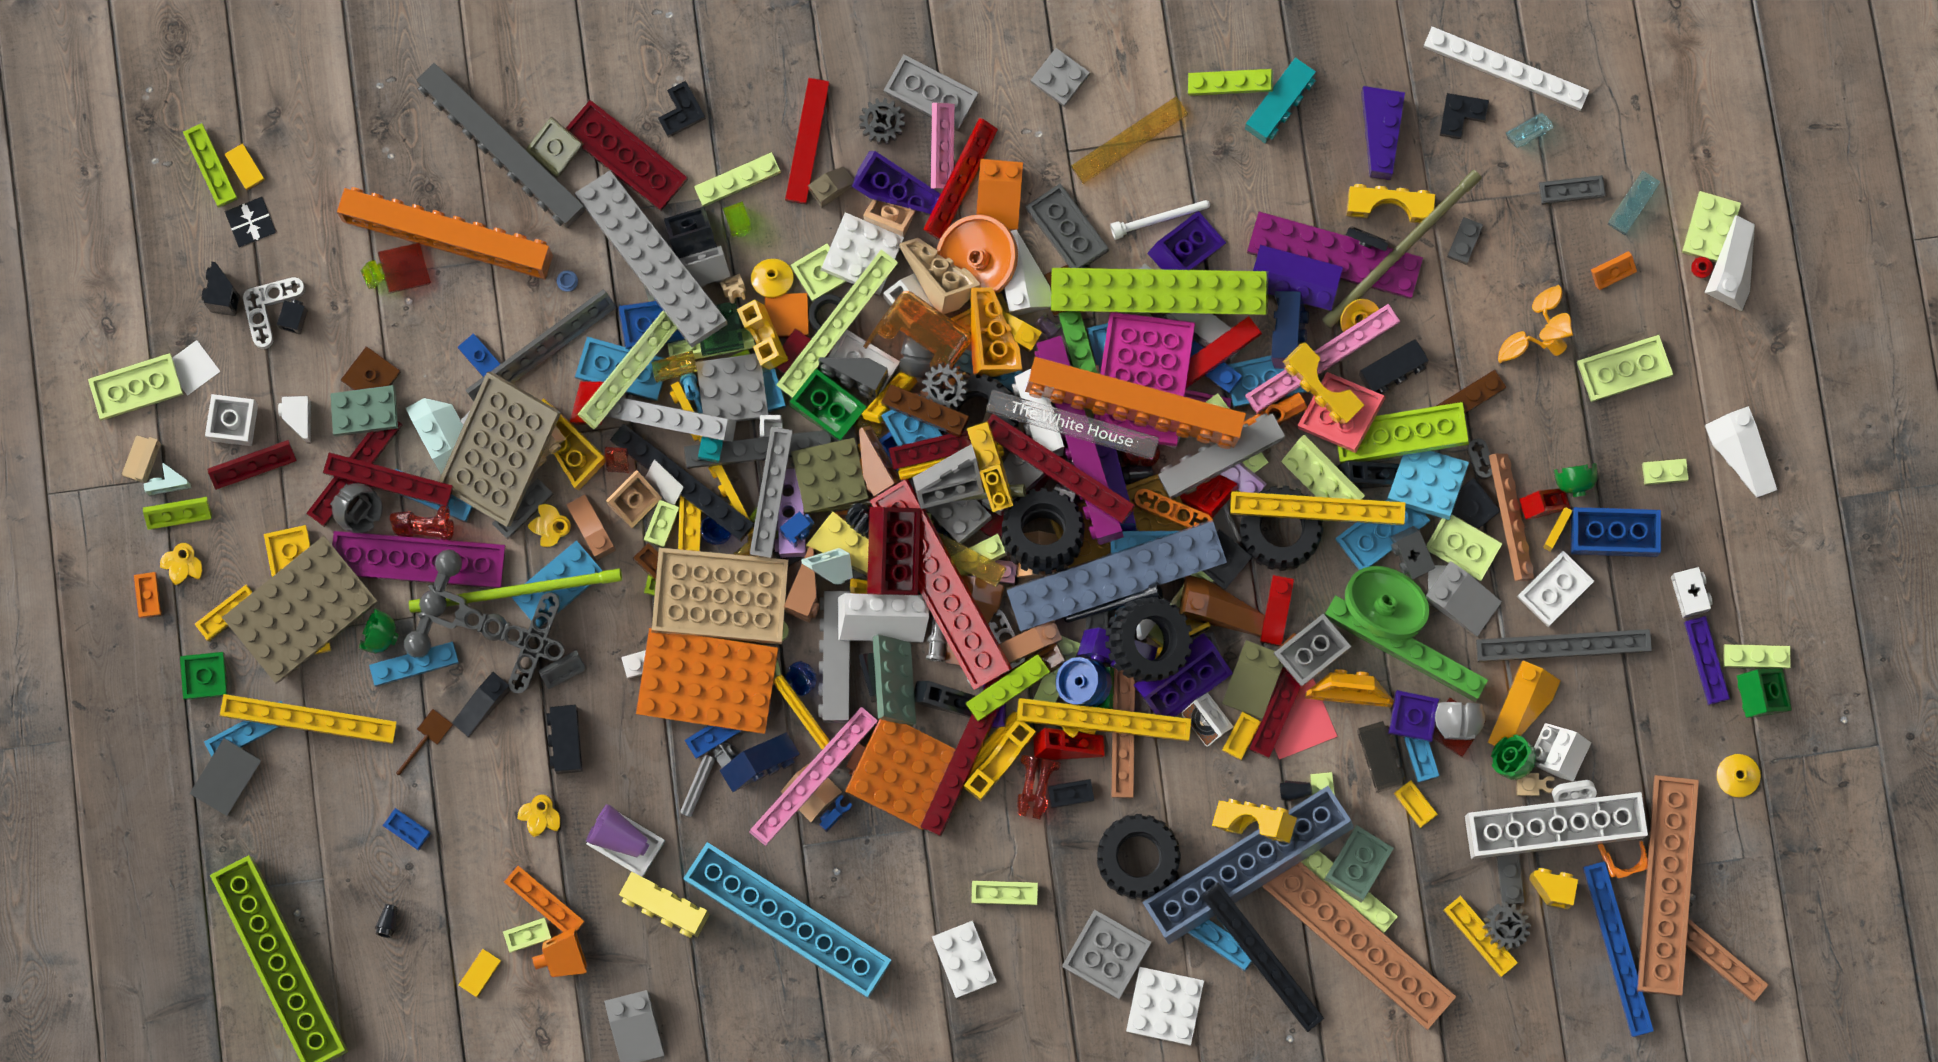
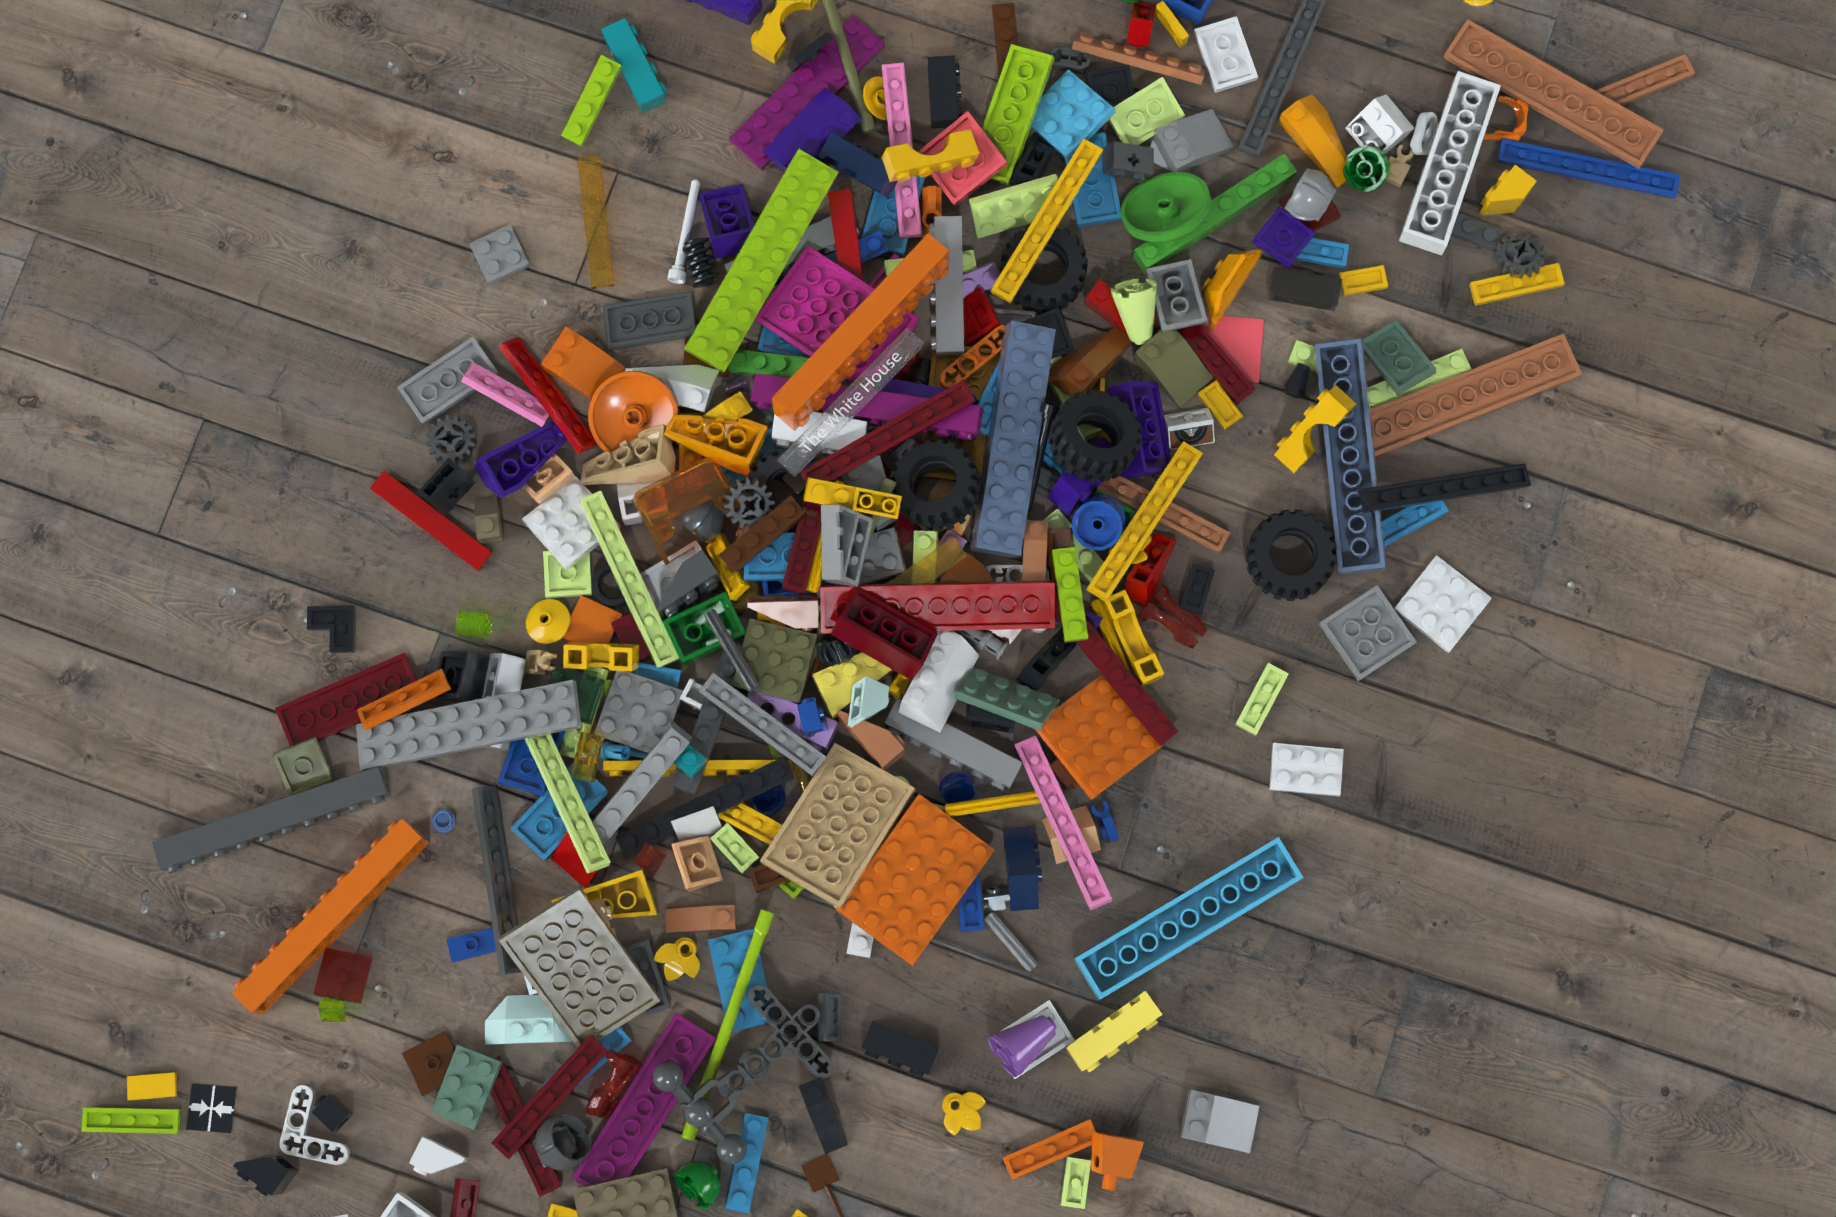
camera: 65 degrees left, 0 degrees up
(647, 197) = (403, 699): none -> orange plate
(737, 179) = (432, 606): yellowish green plate -> none
(818, 436) = (731, 650): none -> dark grey axle
(839, 138) = (446, 487): none -> black brick
(1136, 243) = (699, 262): none -> black piece
(1284, 620) = (1136, 308): none -> yellowish green cone

